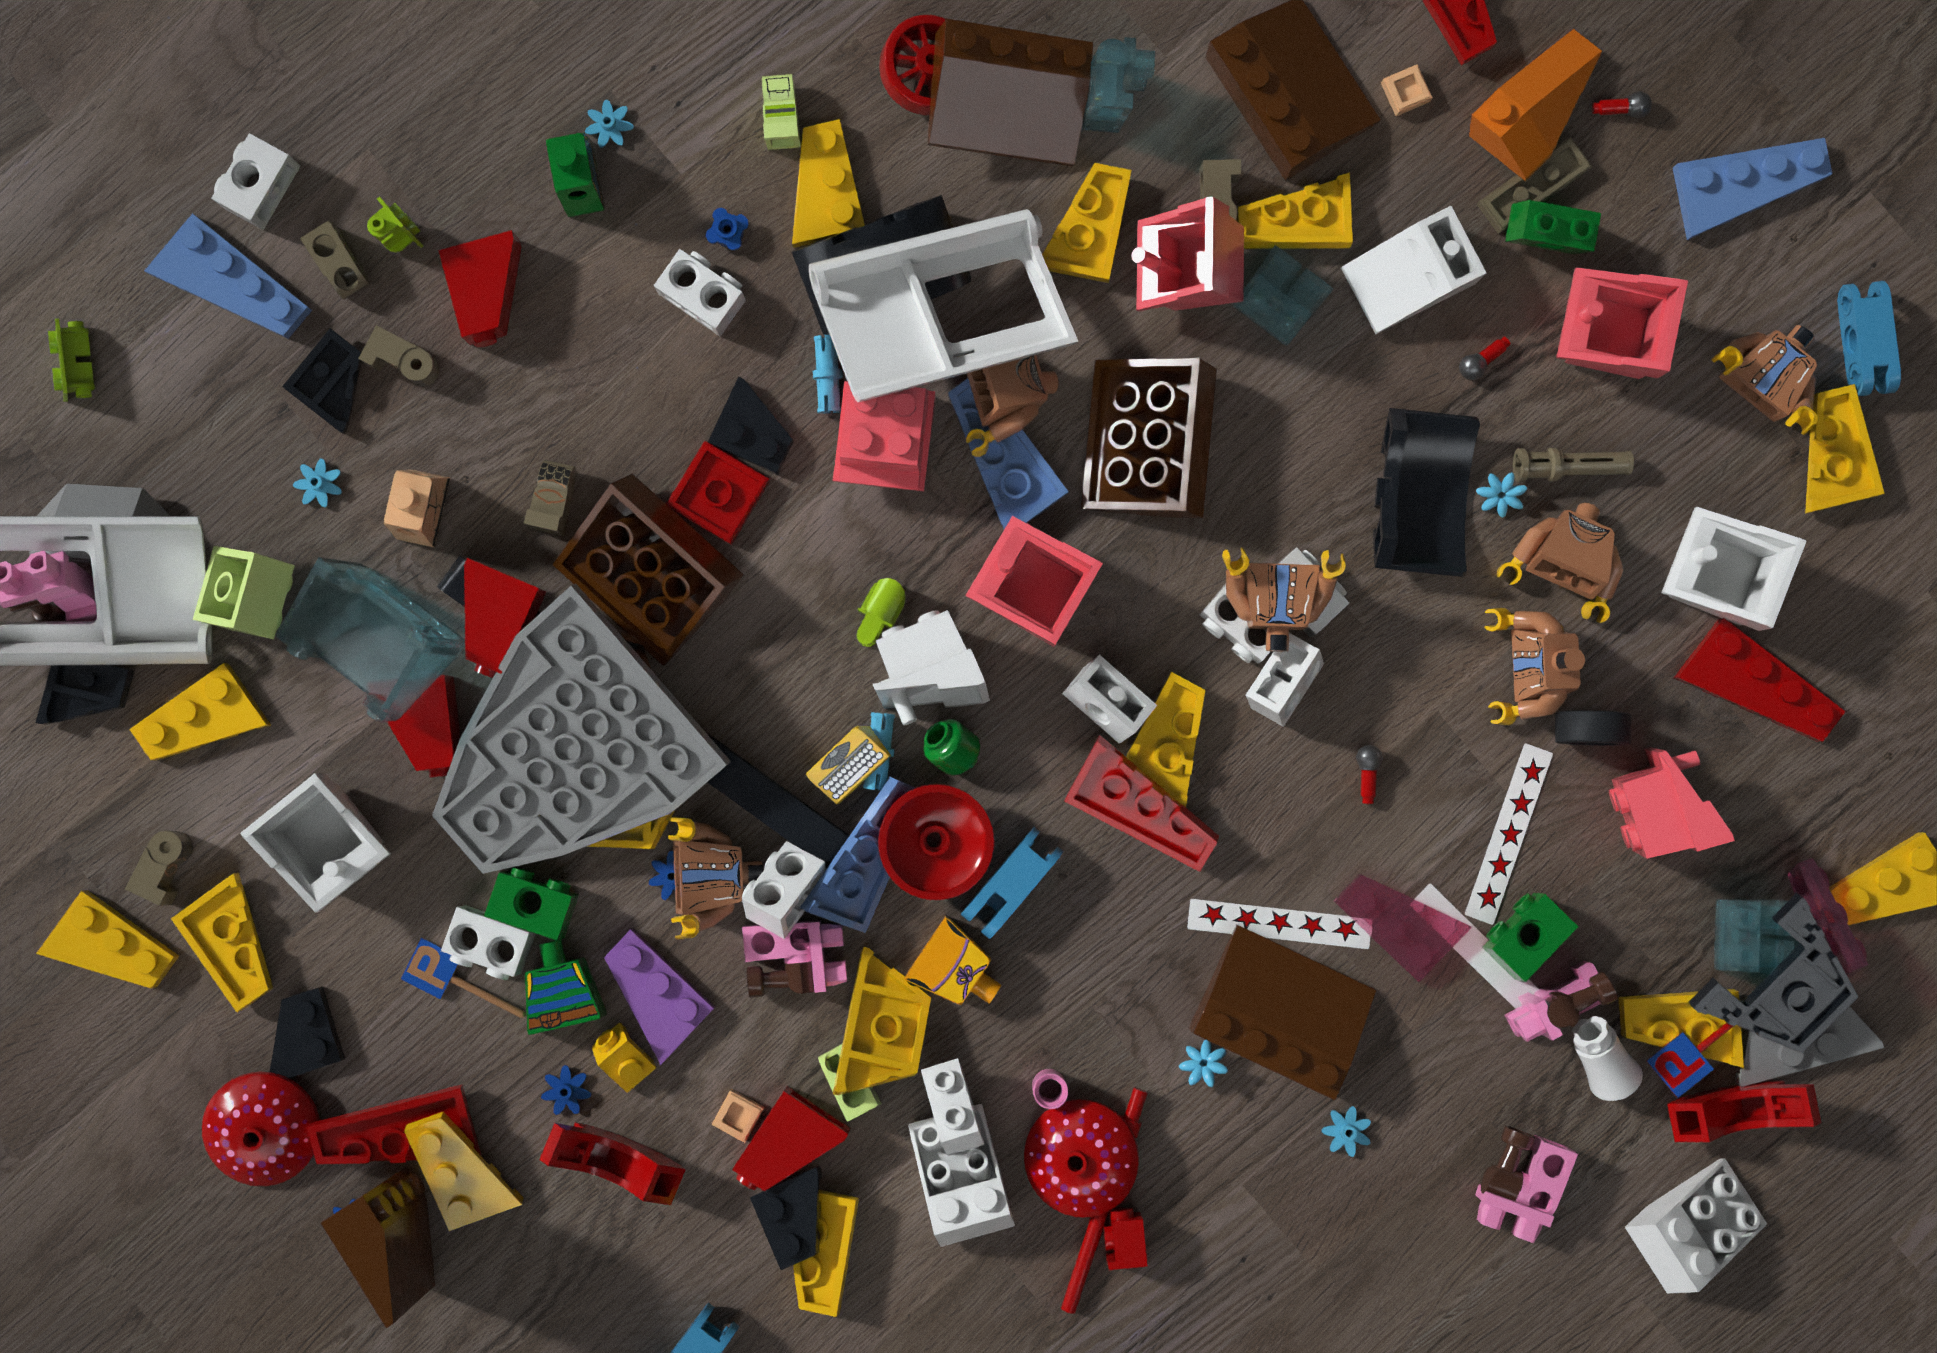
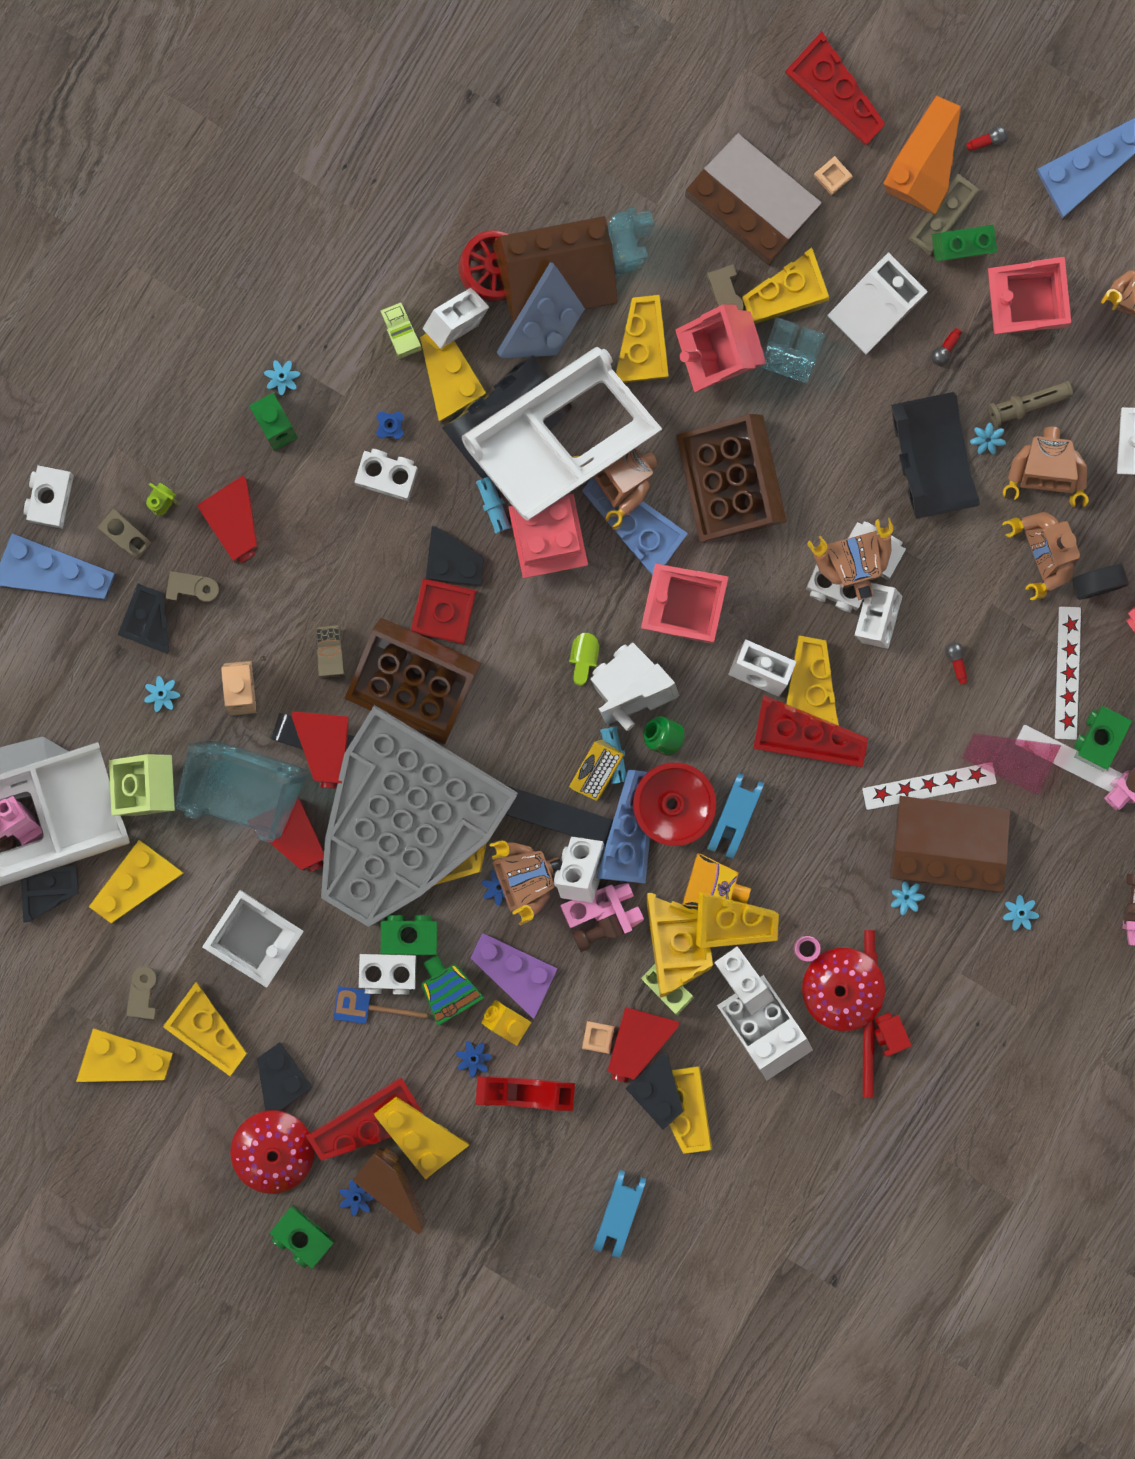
camera: 20 degrees left, 0 degrees up
(281, 1260) = (318, 1239): none -> green brick
(855, 113) = (455, 318): none -> white brick
(962, 1025) = (733, 923): none -> yellow wing
(970, 151) = (544, 319): none -> sand blue wing

